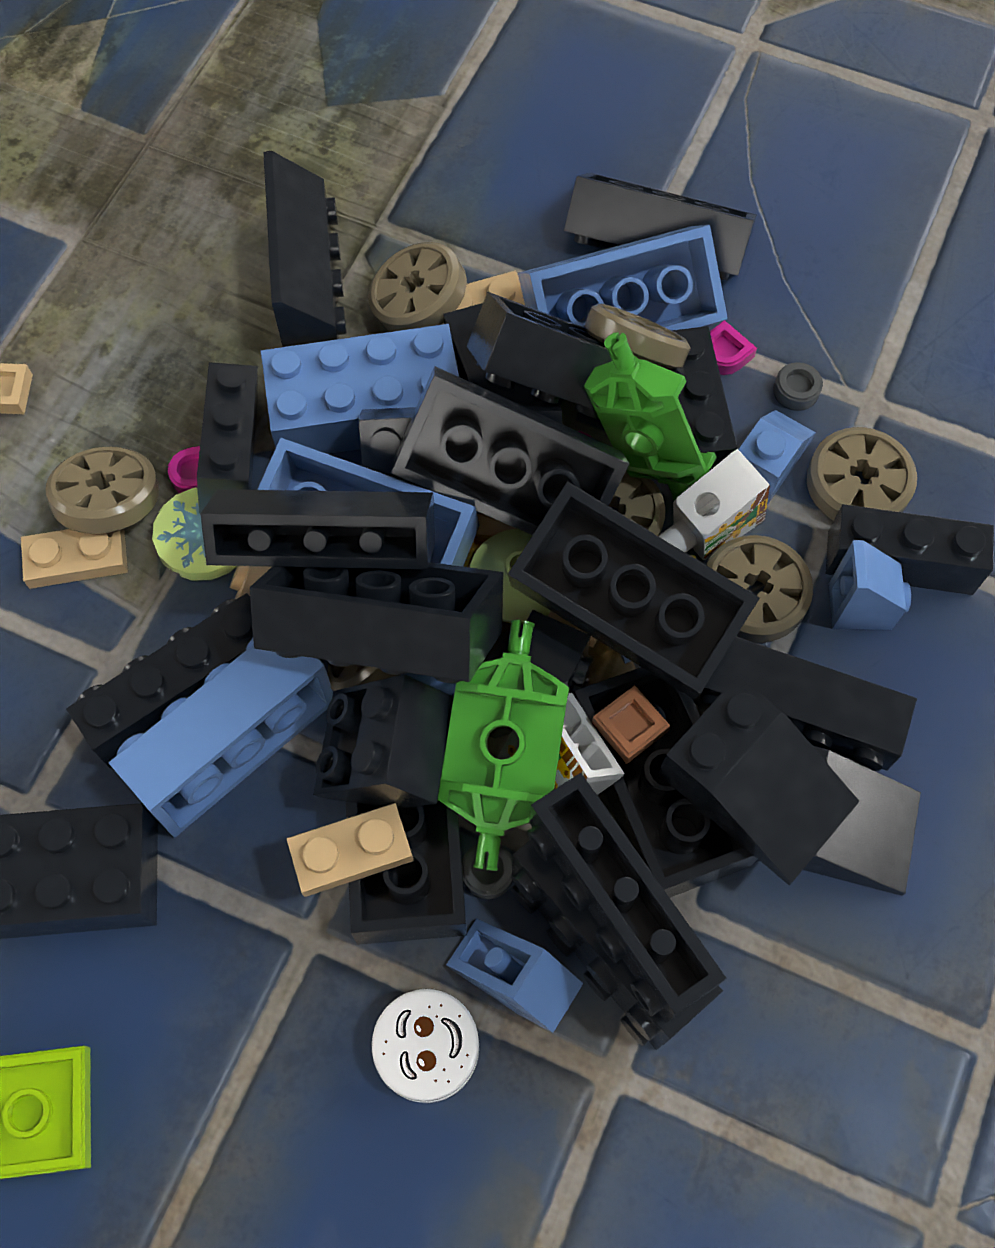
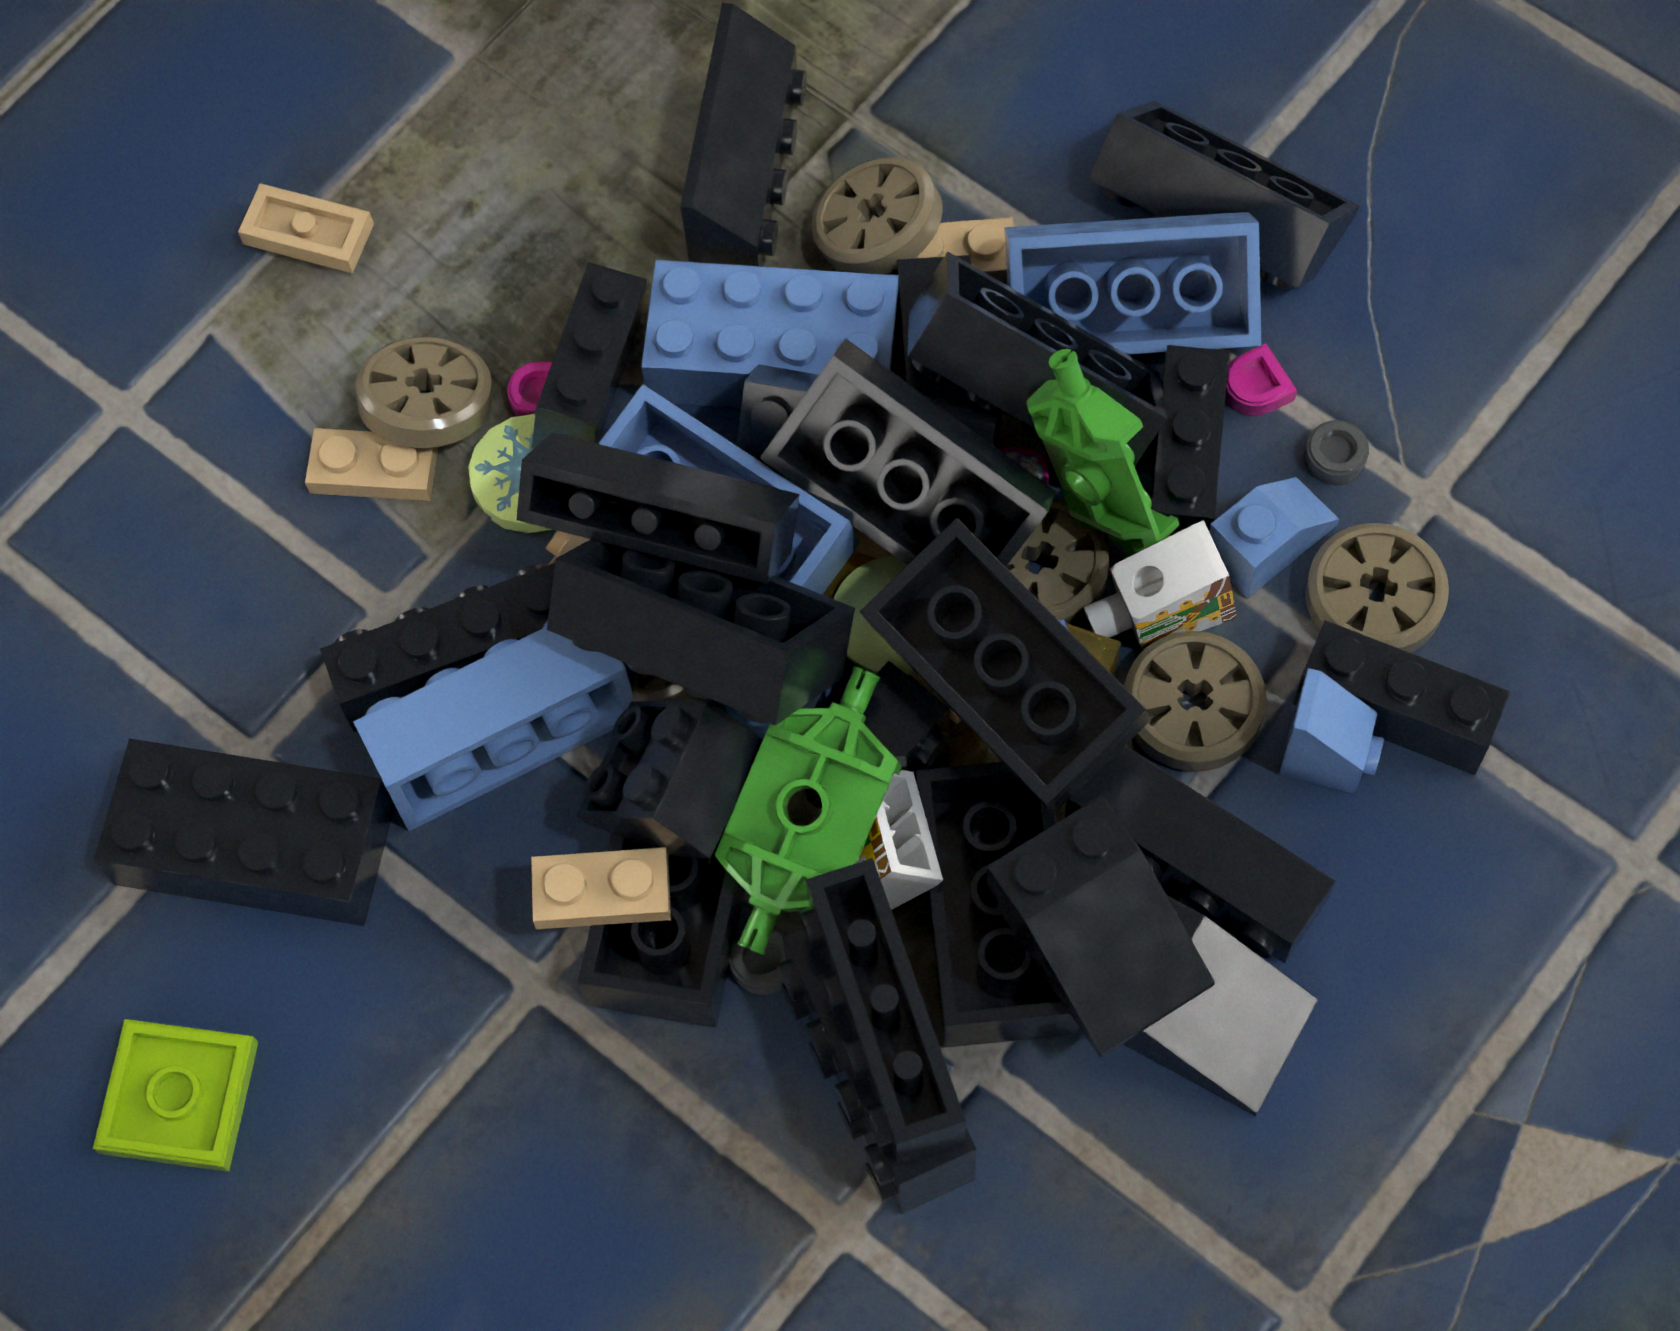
camera: 20 degrees right, 0 degrees up
(425, 1045) = (633, 1135): white head -> none
(516, 974) = (759, 1083): medium blue slope -> none
(630, 724) = (969, 825): nougat tile -> none
(646, 338) = (1122, 348): dark tan wheel -> none

